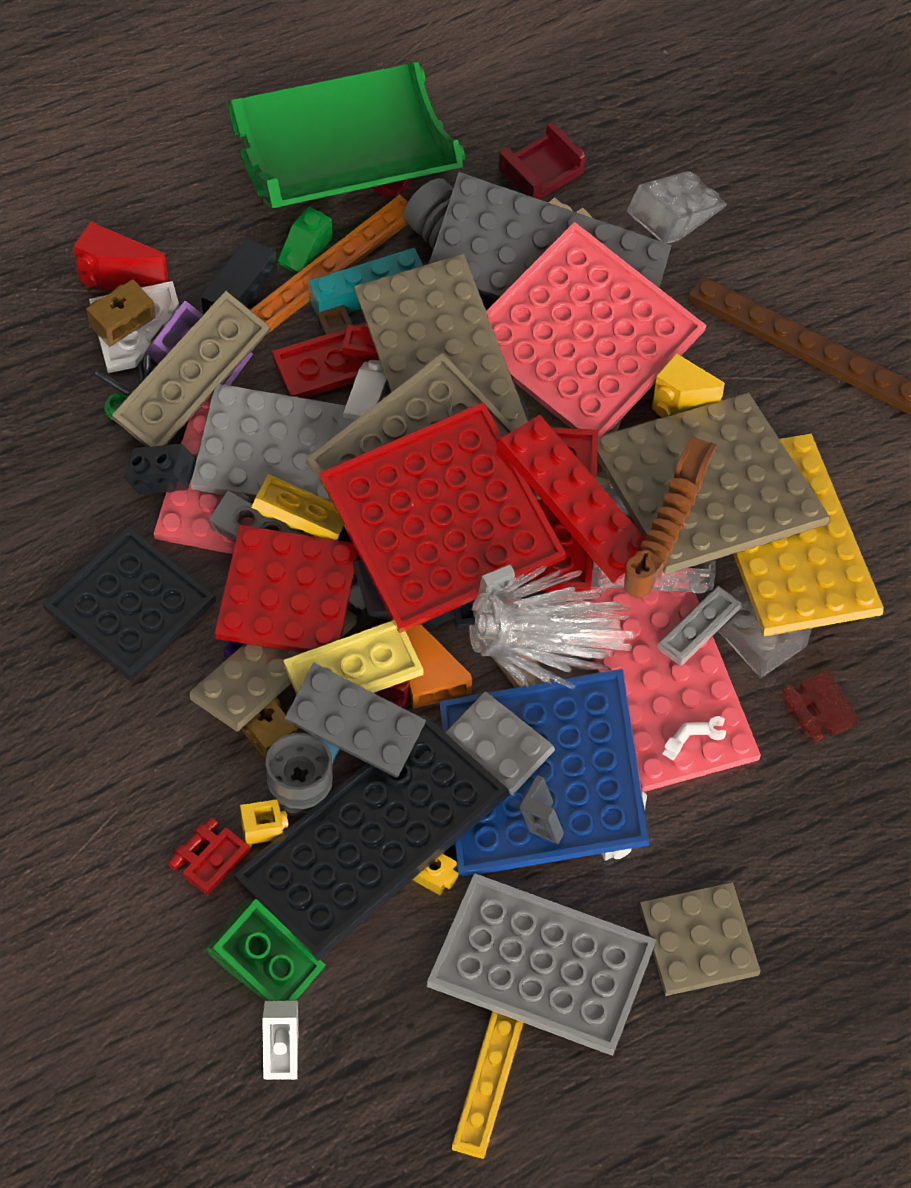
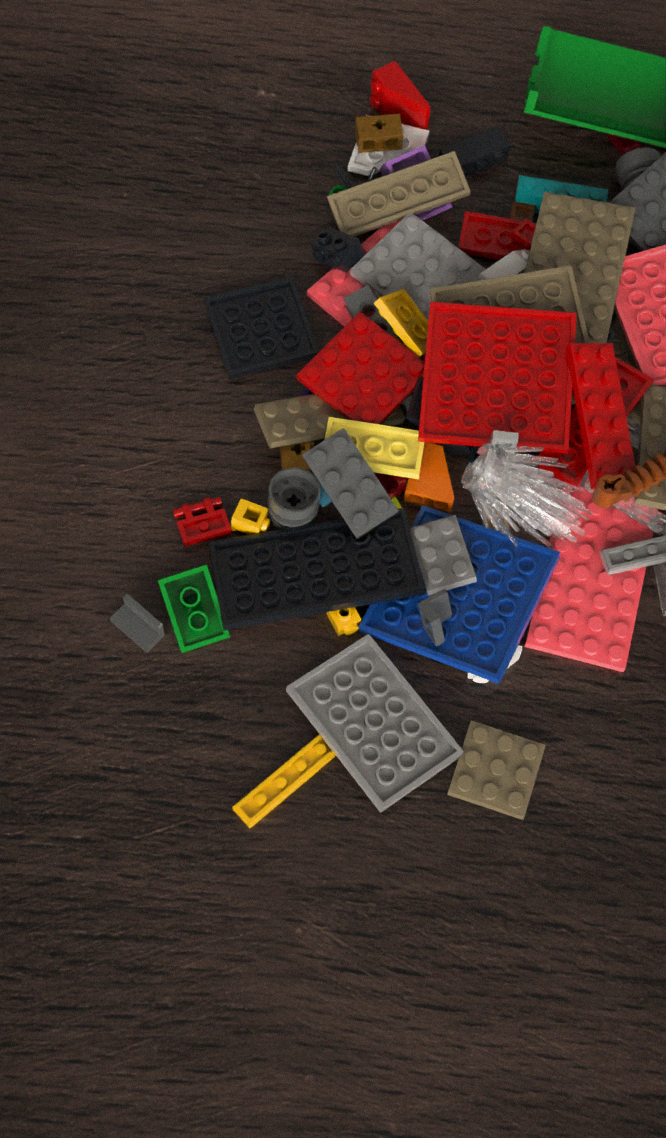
camera: 30 degrees right, 5 degrees up
(214, 1010) = (138, 624): none -> dark grey panel
(280, 1039) = (166, 667): white slope -> none
(306, 240) = (538, 149): green slope -> none
(341, 256) = (563, 171): orange tile -> none
(676, 742) = (565, 626): white arm -> none

